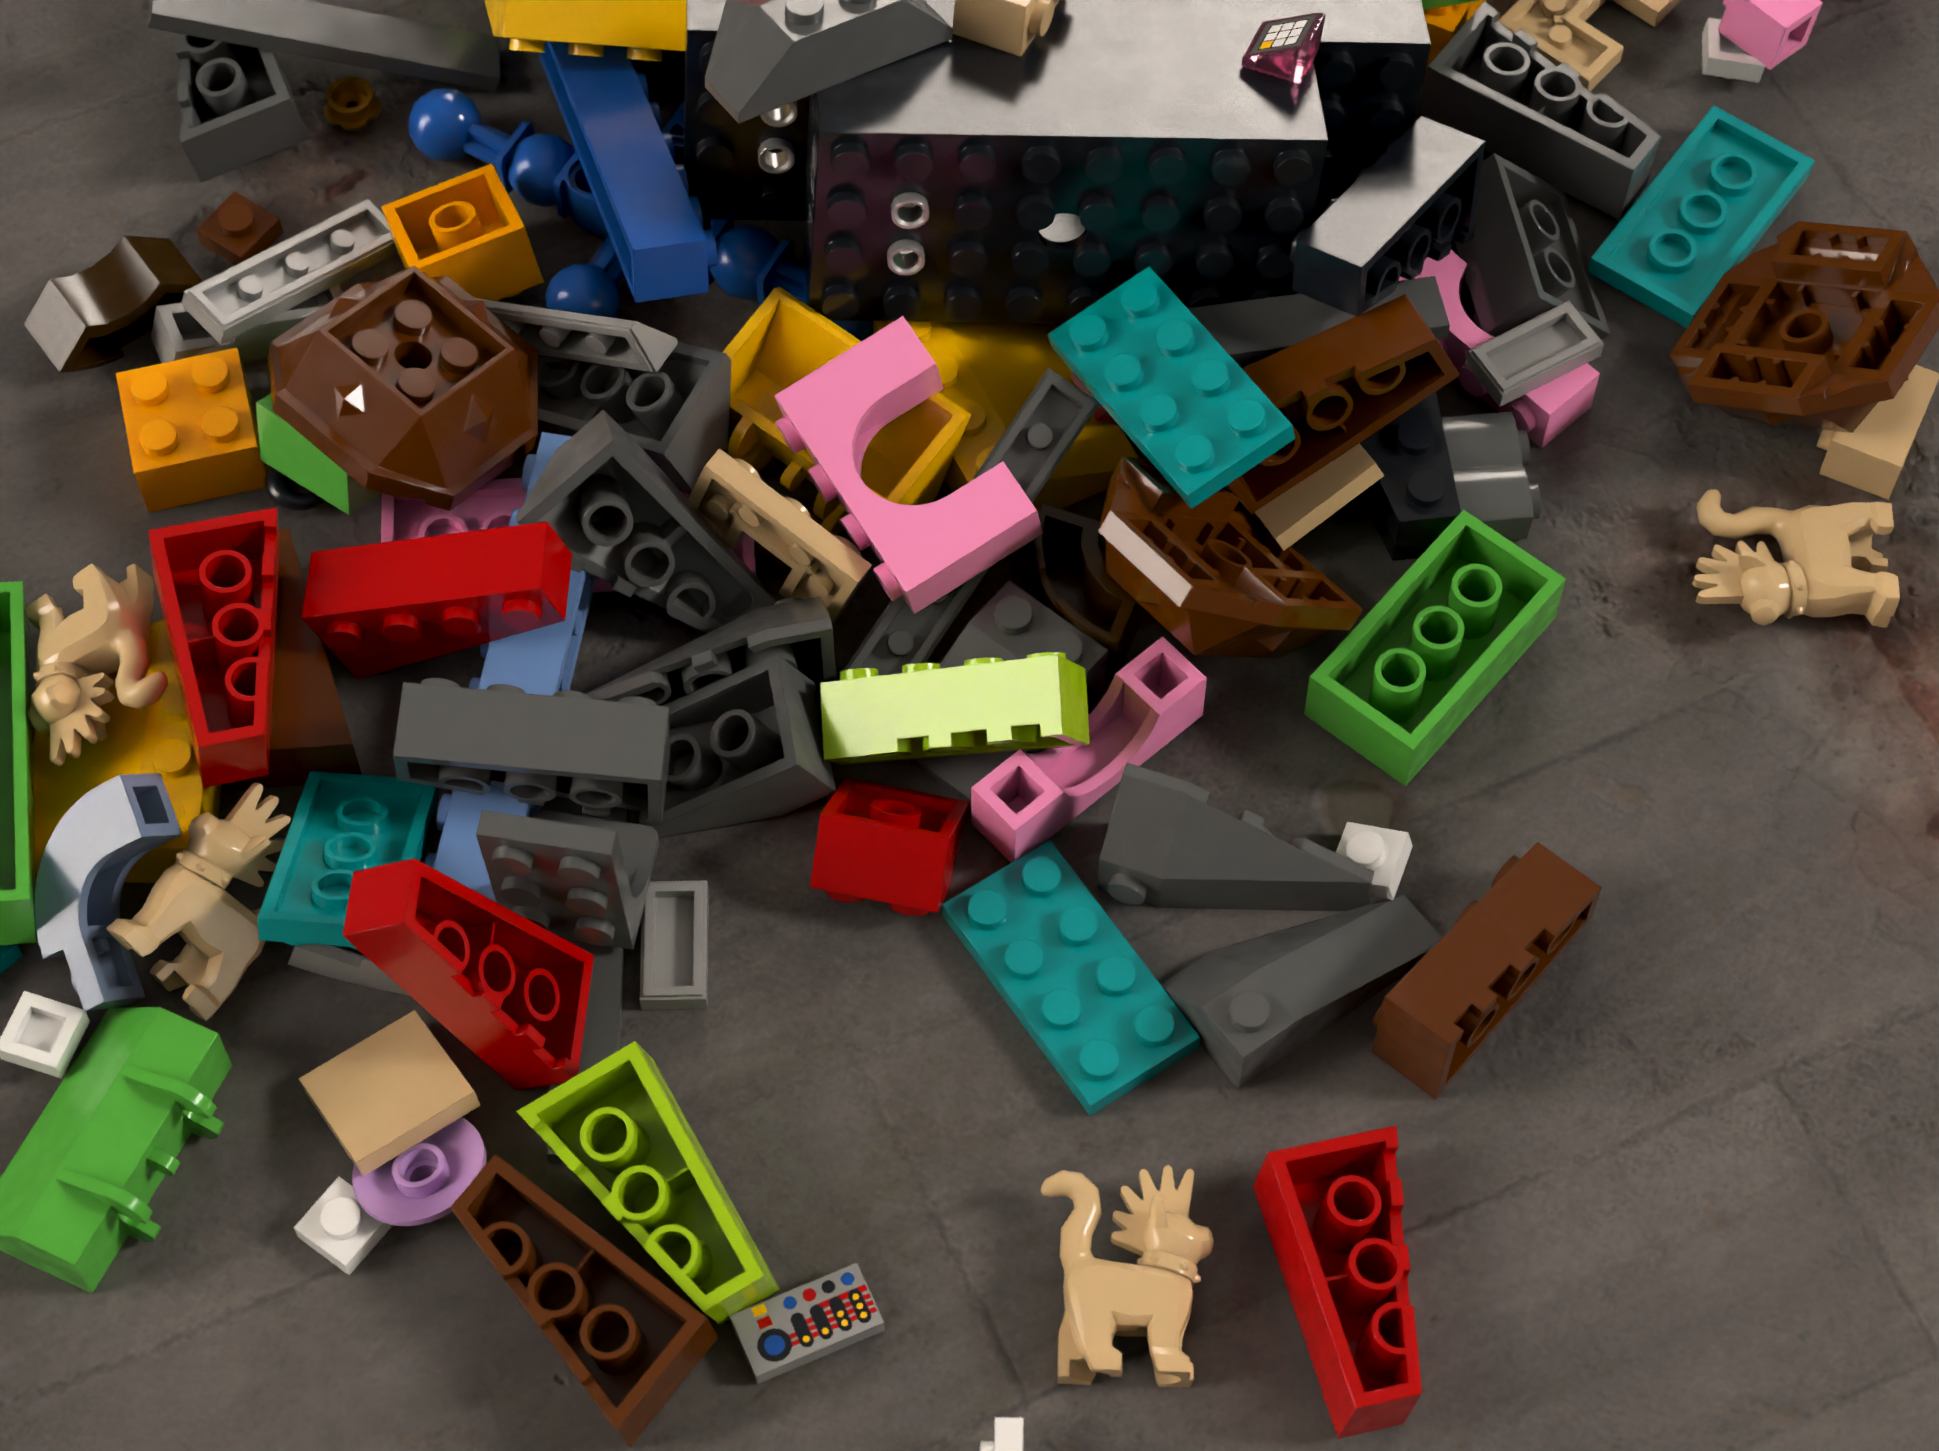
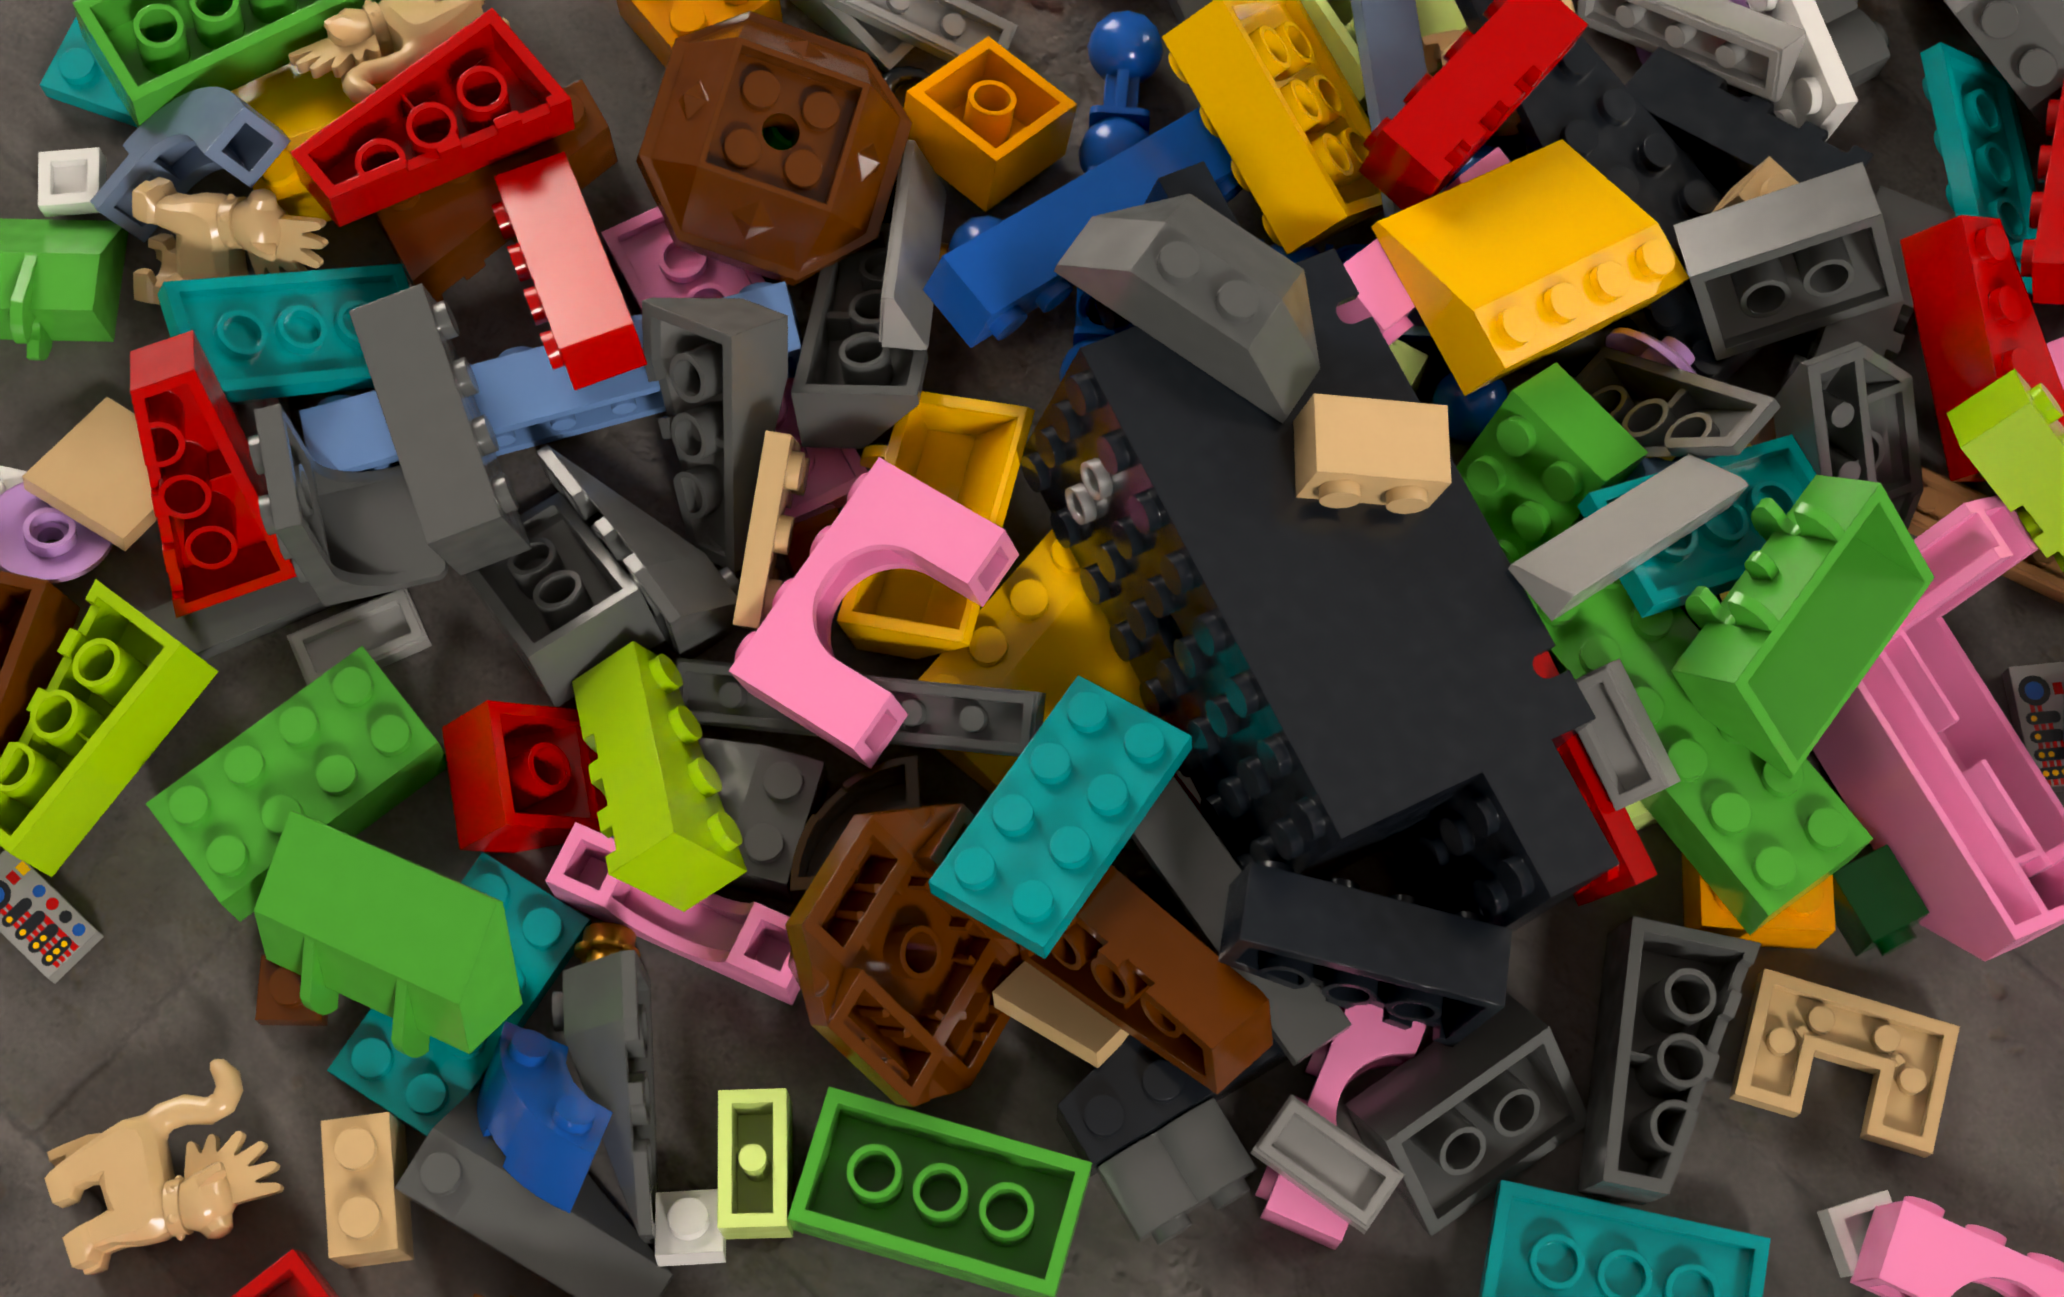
camera: 65 degrees right, 10 degrees up
(802, 1029) = (331, 752): none -> bright green brick
(995, 1115) = (280, 998): none -> reddish brown plate
(1006, 969) = (386, 938): none -> bright green piece
(1084, 833) = (603, 940): none -> pearl gold plate
(1223, 1100) = (364, 1211): none -> tan brick
(1250, 909) = (540, 1116): none -> blue brick
(1285, 46) = (1445, 749): clear pink slope -> none
(1342, 773) = (755, 1163): none -> yellowish green brick

